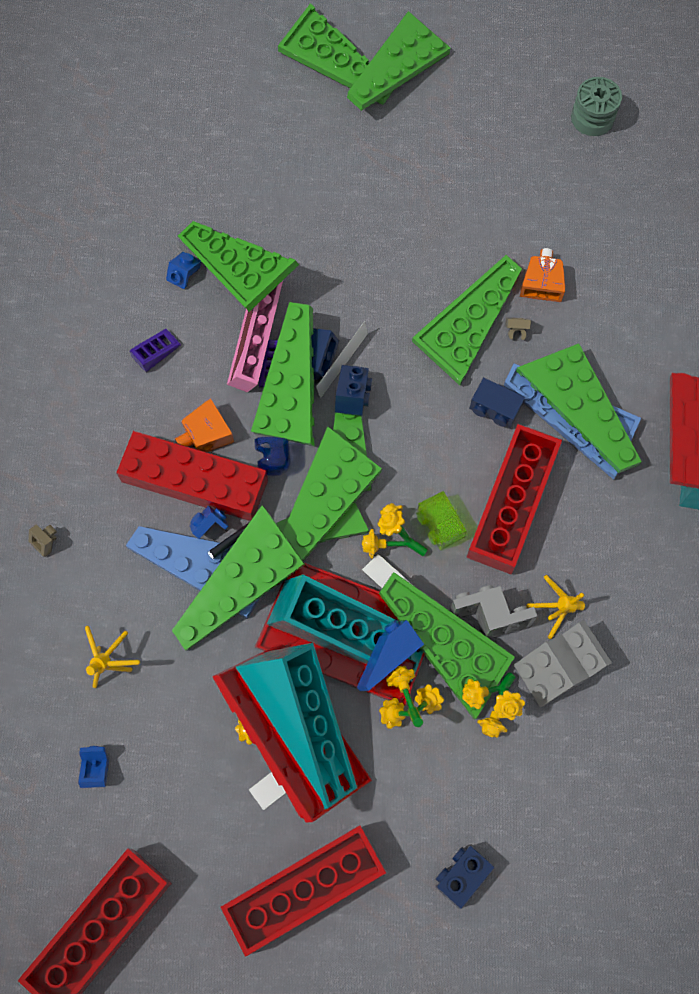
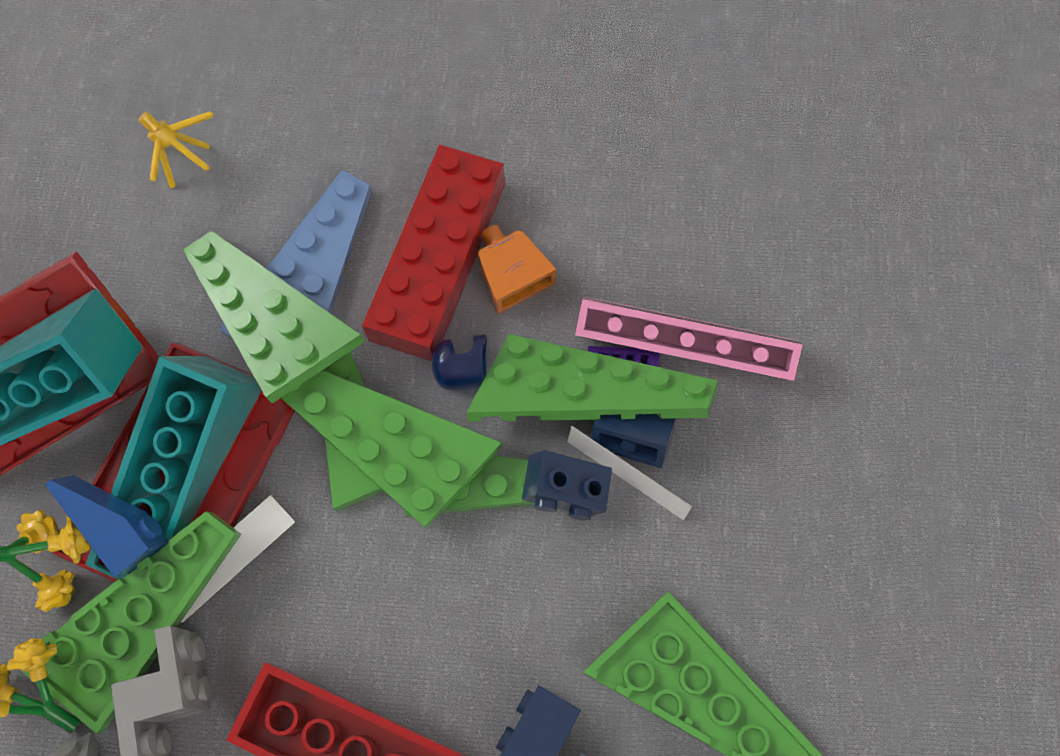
camera: 95 degrees right, 0 degrees up
(42, 539) = (359, 67): dark tan tile -> none
(93, 767) = (41, 143): blue bracket -> none
(145, 346) = (648, 180): dark purple slope -> none
(181, 268) = (789, 231): blue bracket -> none
(203, 521) = (365, 269): blue bracket -> none
(226, 544) = (335, 308): black bar -> none
(238, 264) = (782, 304): bright green wing -> none
(389, 523) = (313, 530): yellow plant -> none
(441, 520) = (335, 624): clear neon green brick -> none

